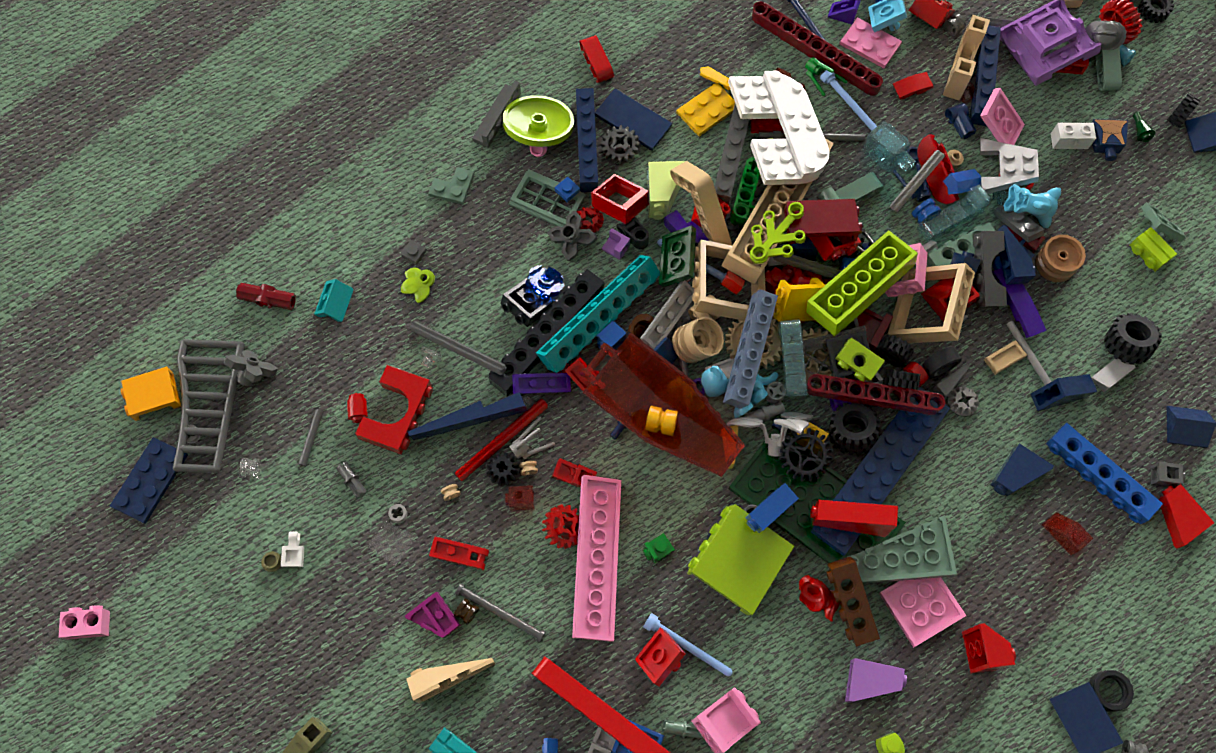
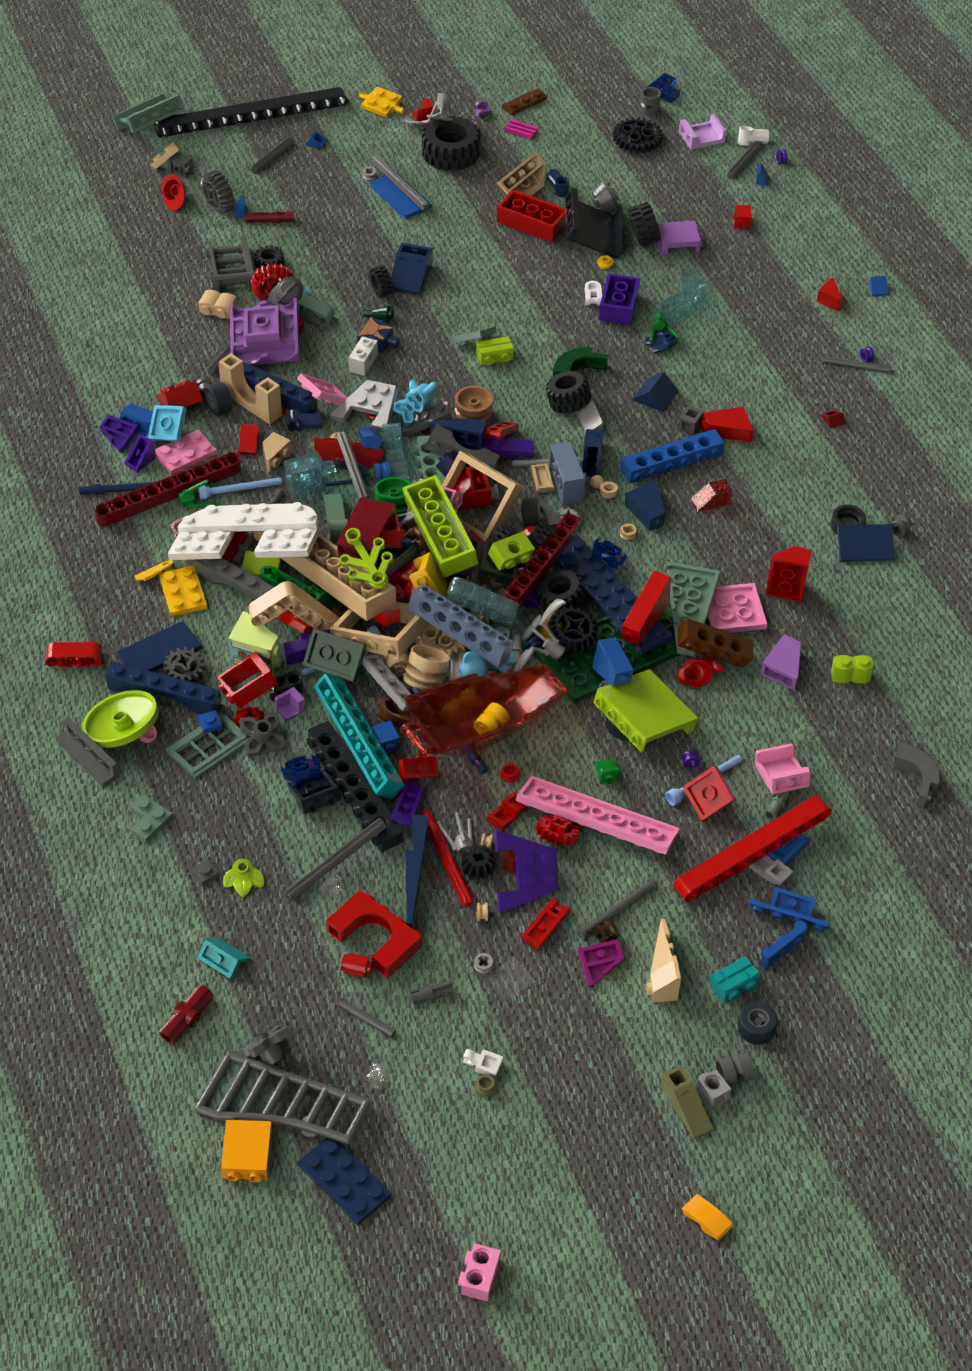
camera: 70 degrees left, 20 degrees down
(508, 521) = (534, 870): none -> dark purple wing
(618, 460) = (510, 773): none -> red plate
(703, 624) = (690, 759): none -> dark purple bush
(903, 225) = (391, 491): none -> green wheel
(907, 111) = (275, 450): none -> tan slope
(922, 458) = (609, 553): none -> clear blue plate
(945, 39) = (218, 398): none -> black wheel
(971, 468) = (625, 528): none -> tan bush
(1016, 377) = (567, 473): none -> sand blue brick
(1026, 411) = (607, 489): none -> tan plate
(1042, 294) = (500, 430): none -> red plate
(1187, 330) = (580, 358): none -> dark green arch

